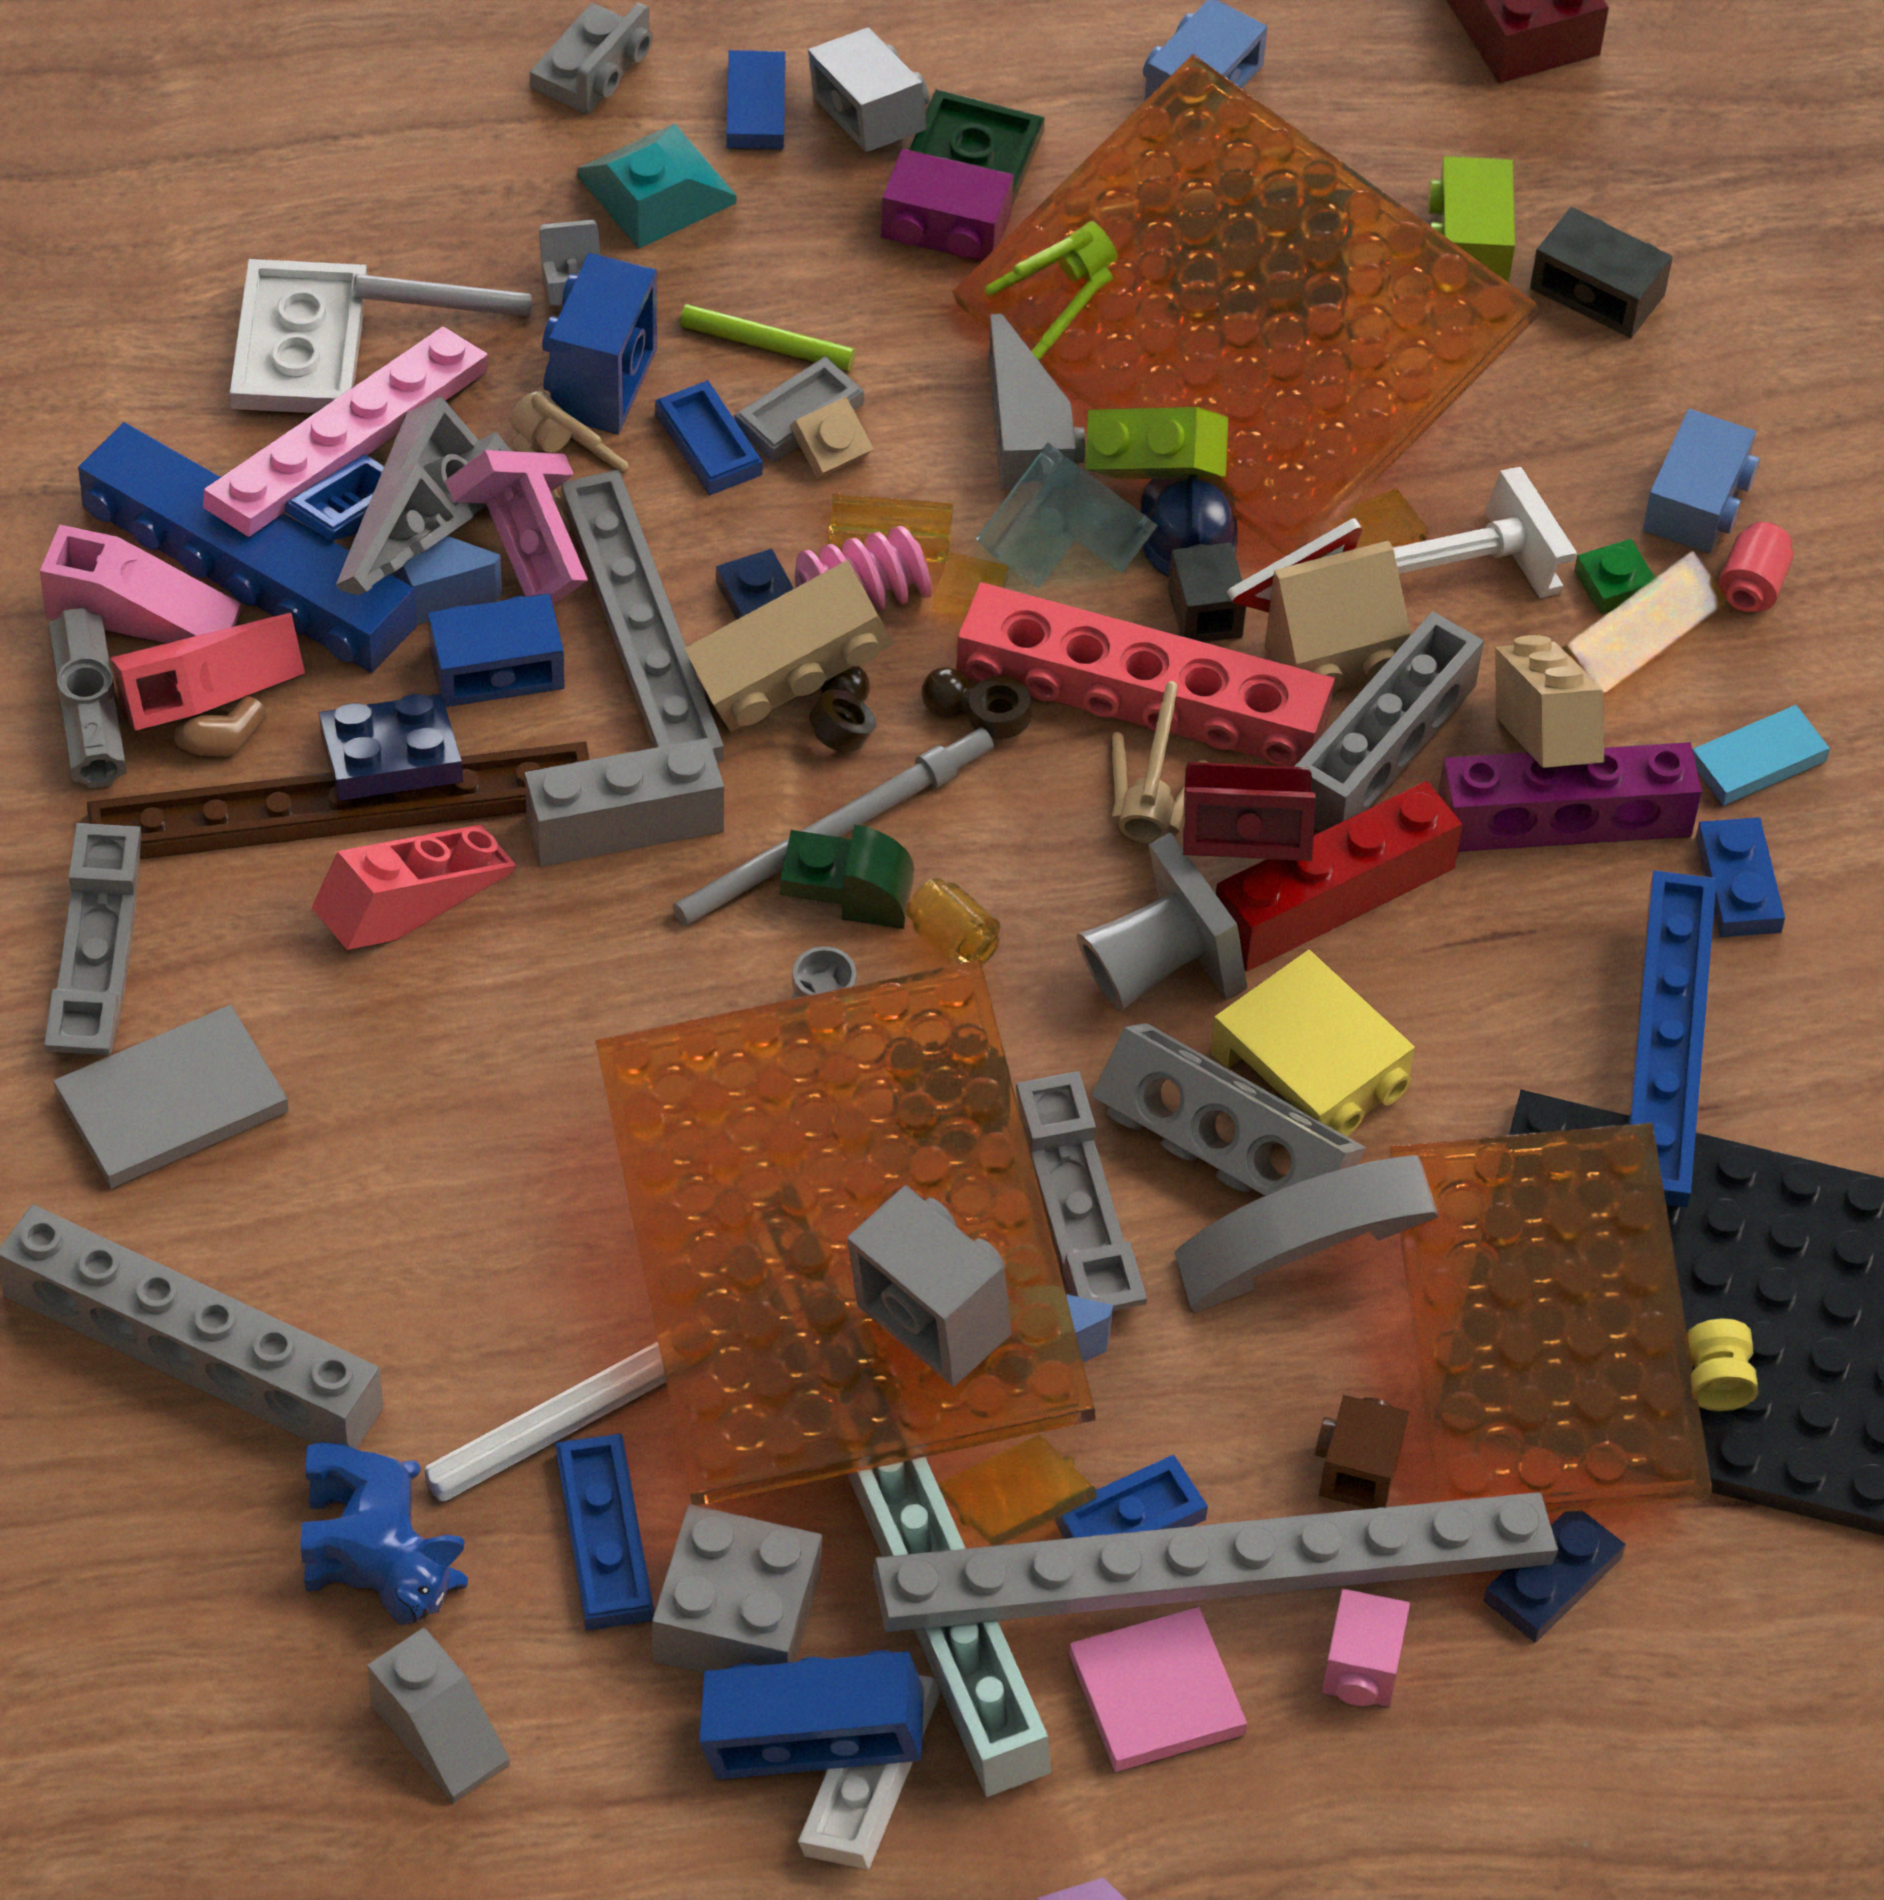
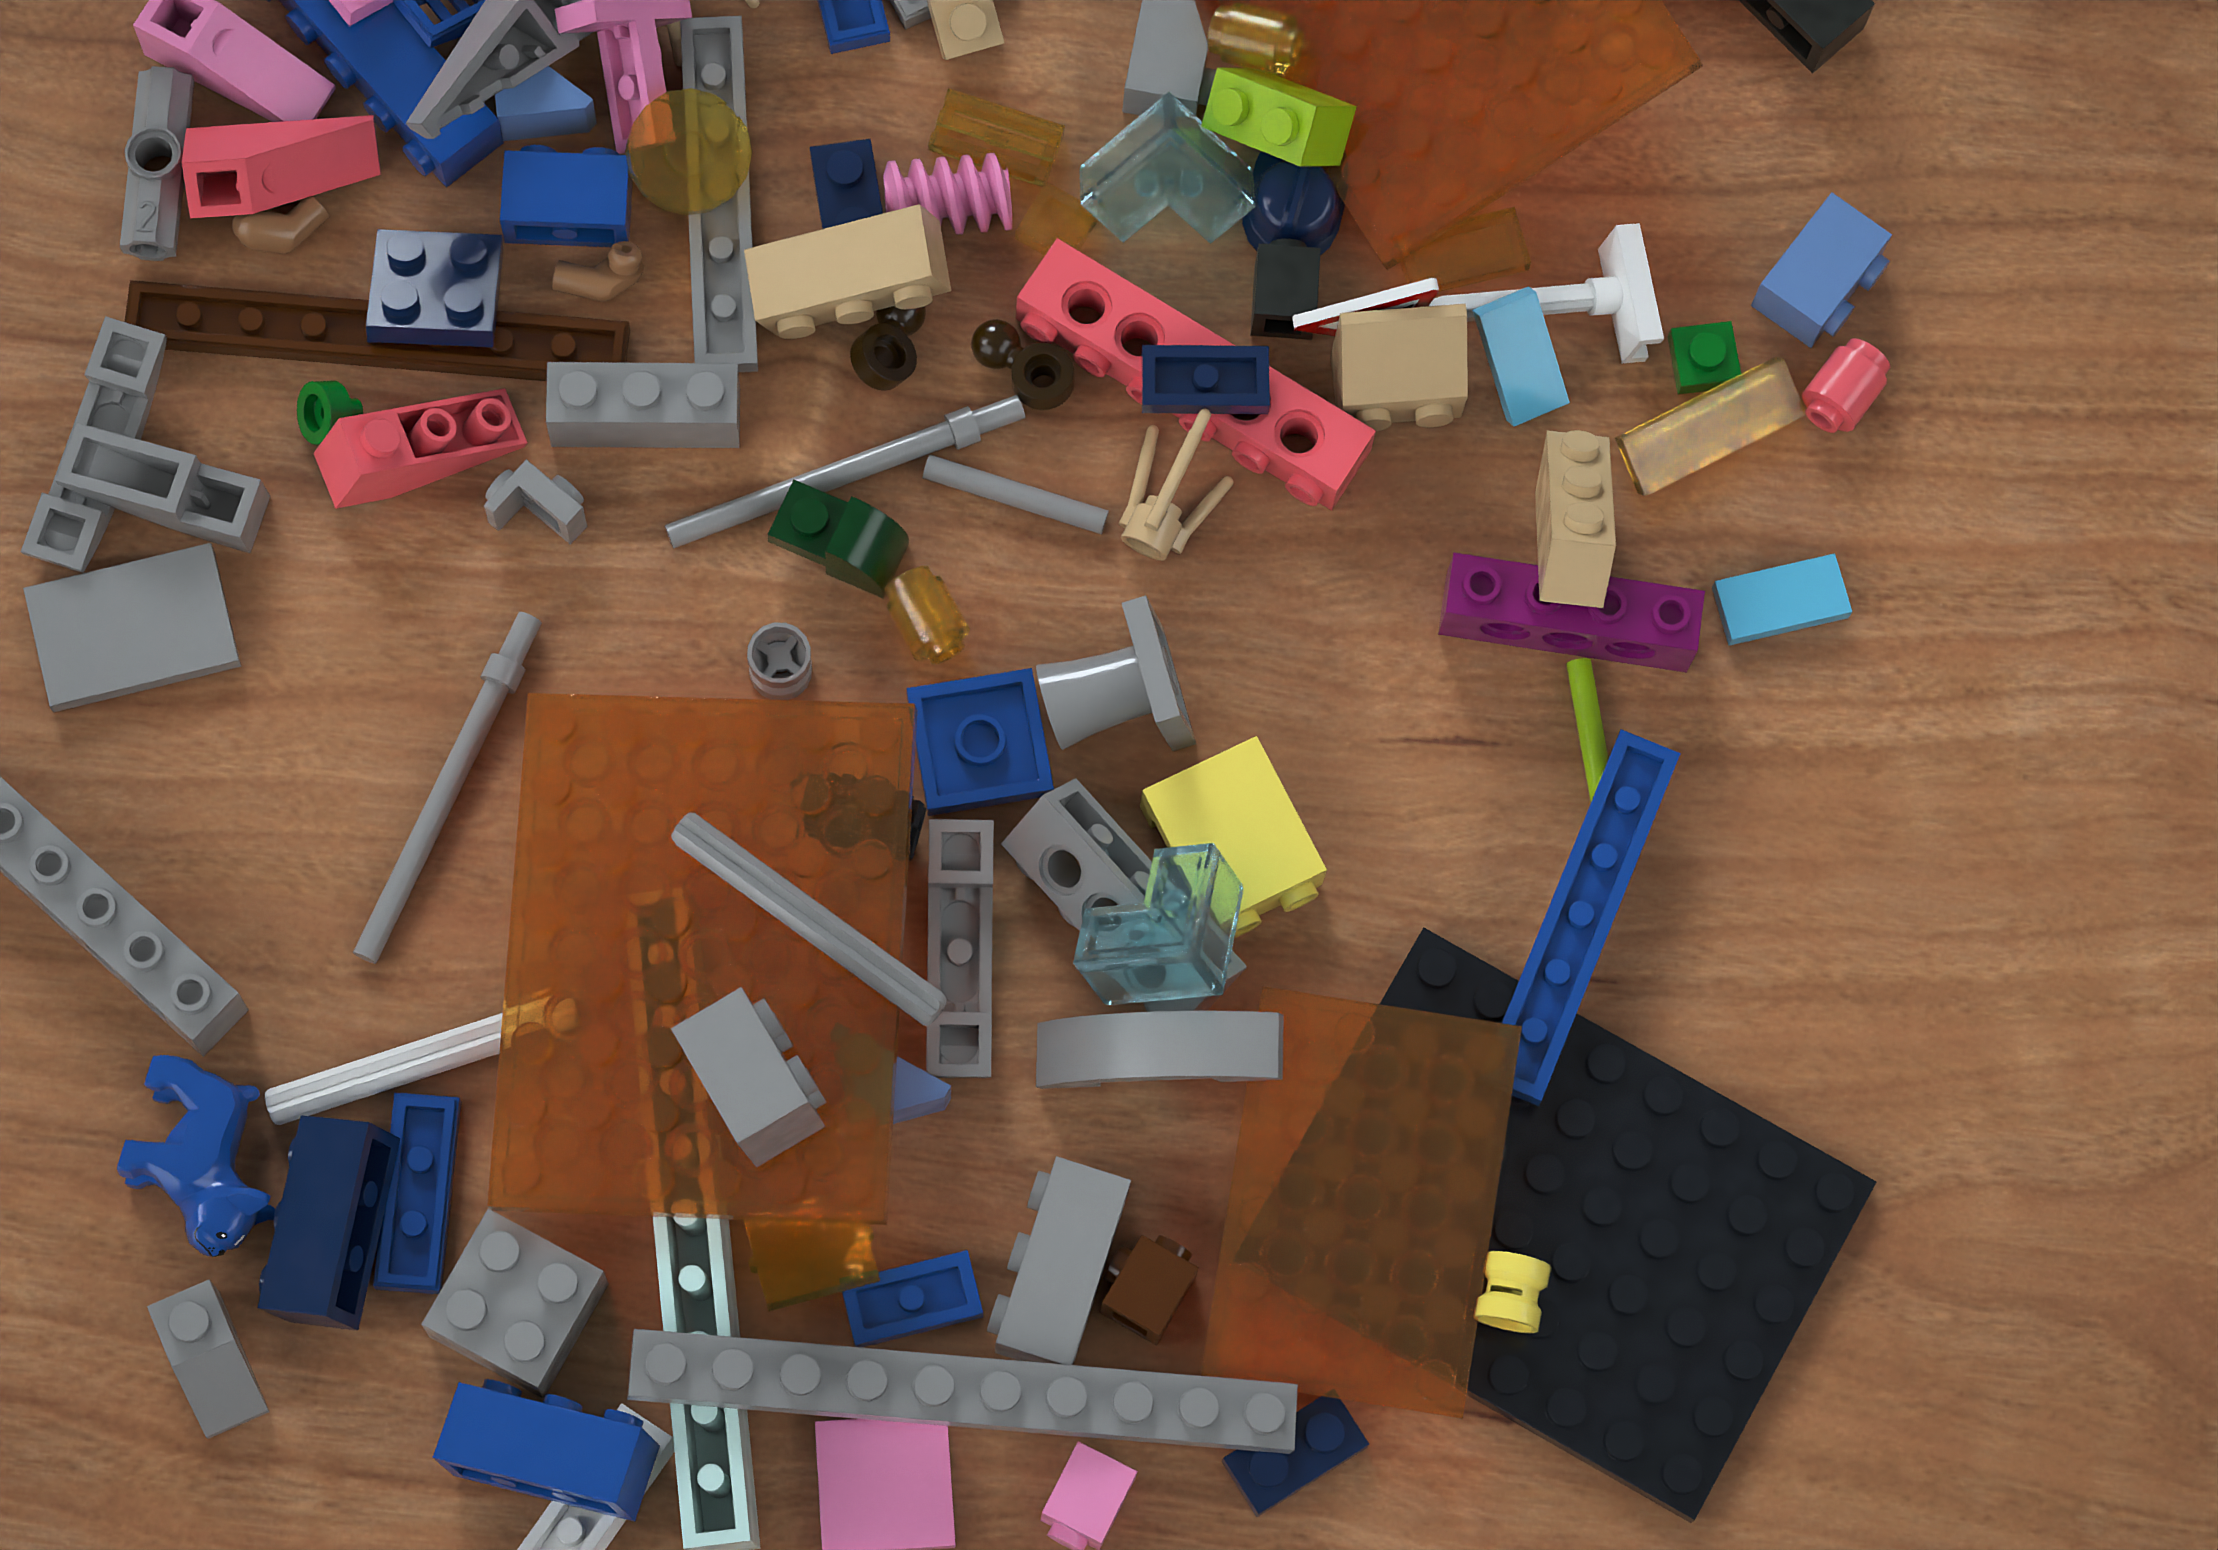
camera: 10 degrees right, 20 degrees up
(173, 962) = (164, 486): none -> light grey slope
(306, 867) = (321, 406): none -> green tile
(525, 1564) = (328, 1222): none -> dark blue brick
(546, 899) = (552, 500): none -> light grey bracket
(551, 714) = (605, 280): none -> medium nougat arm
(551, 1066) = (500, 677): none -> light grey bar
(606, 579) = (688, 152): none -> clear yellow tile
(939, 1154) = (809, 919): none -> light grey axle
(1004, 813) = (1015, 494): none -> light grey bar
(1050, 1017) = (980, 742): none -> blue plate
(1114, 382) = (1255, 38): none -> clear yellow brick
(1148, 659) = (1205, 377): none -> dark blue plate
(1248, 811) = (1231, 587): dark red panel -> none
(1268, 1435) = (1059, 1263): none -> light grey brick
(1285, 1126) = (1172, 941): none -> clear light blue panel
(1350, 874) = (1314, 649): red brick -> none
(1391, 719) = (1412, 493): light grey brick -> none
(1444, 584) = (1521, 356): none -> medium azure tile
(1615, 891) = (1588, 720): none -> lime bar
(1746, 883) = (1717, 734): blue plate -> none

